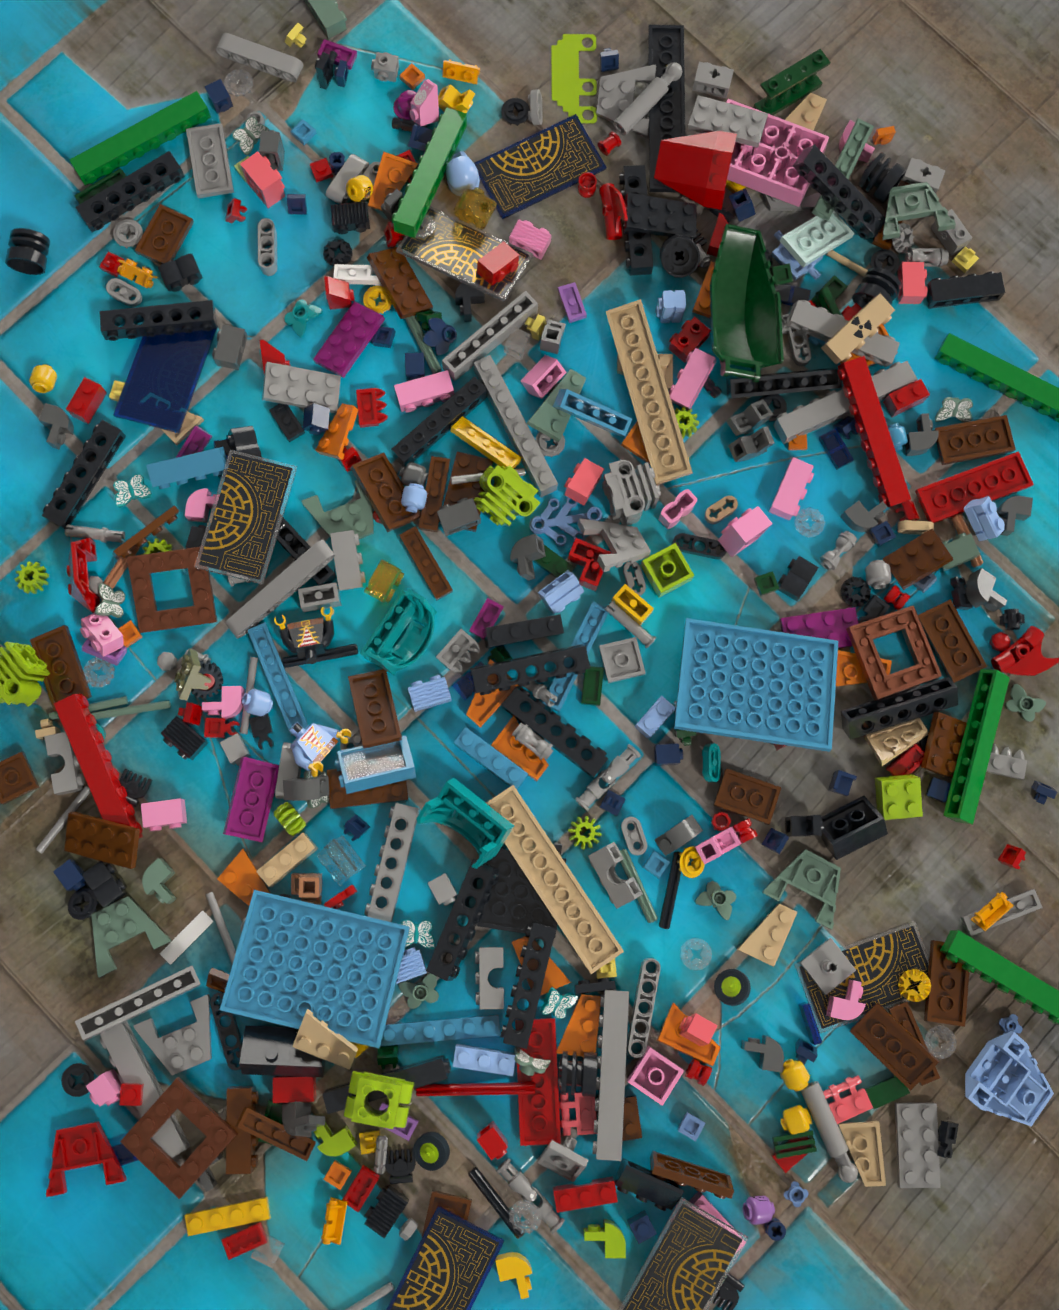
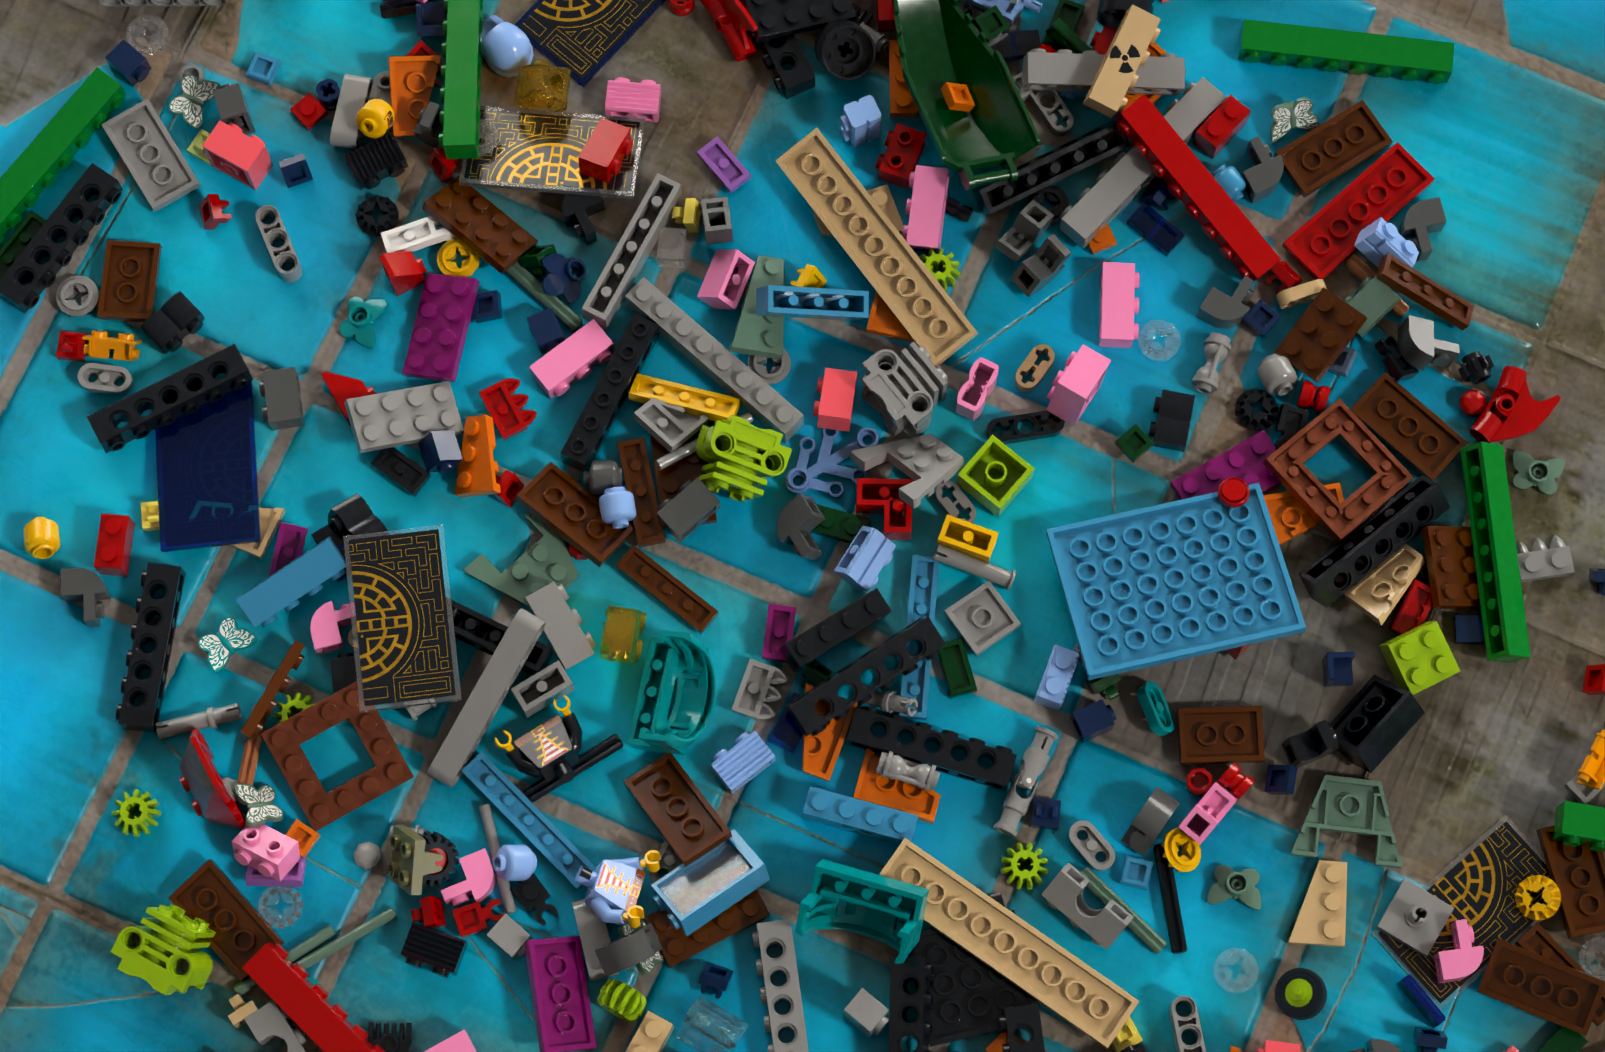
camera: 15 degrees left, 5 degrees down
(468, 455) = (668, 423): none -> light grey wing
(598, 395) = (809, 277): none -> yellow tile
(741, 314) = (957, 97): none -> orange plate
(818, 640) = (1233, 492): none -> red piece
(998, 556) = (1425, 291): none -> reddish brown plate

